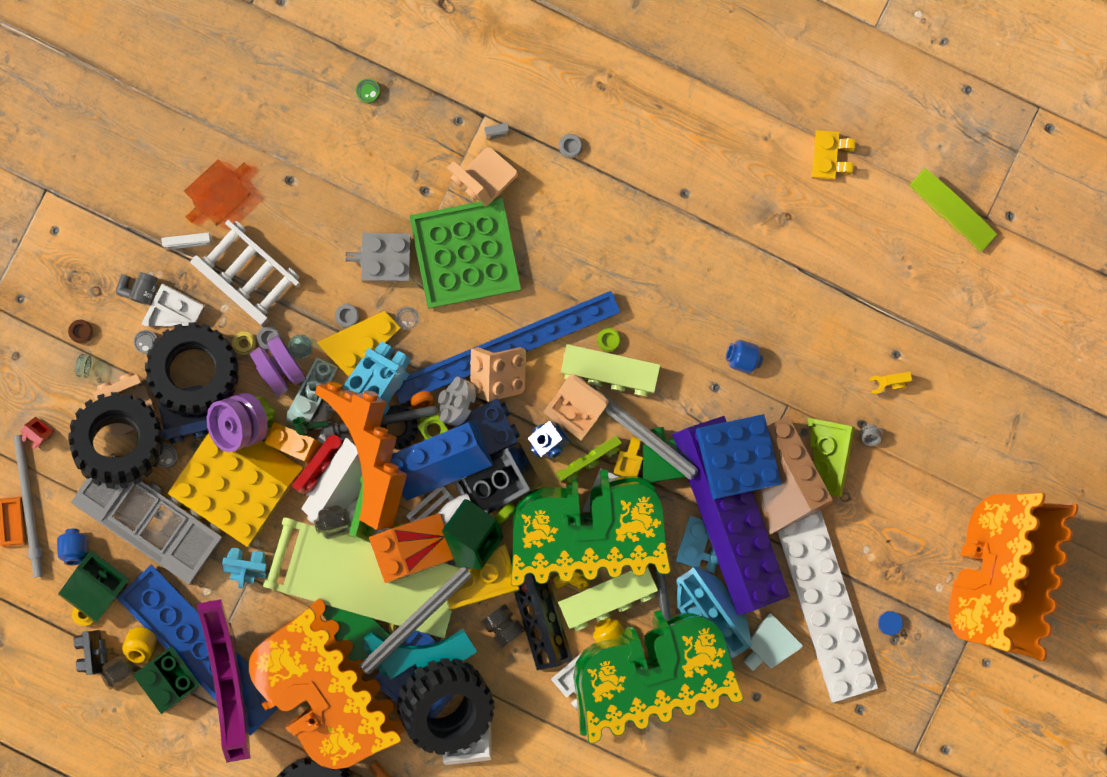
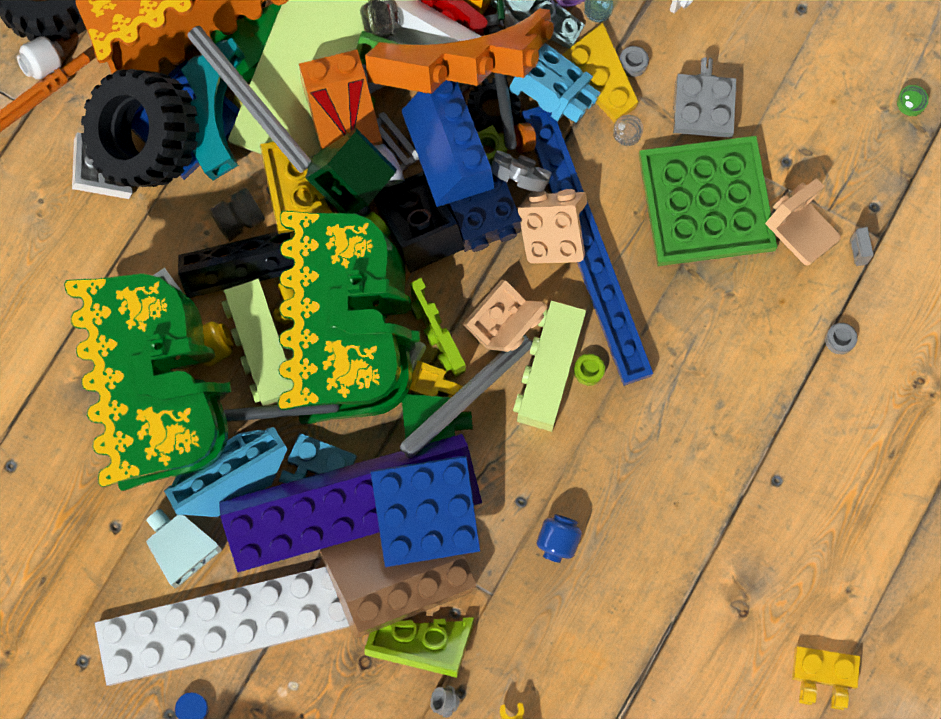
camera: 95 degrees right, 10 degrees down
(548, 440) = (465, 283): brick -> none

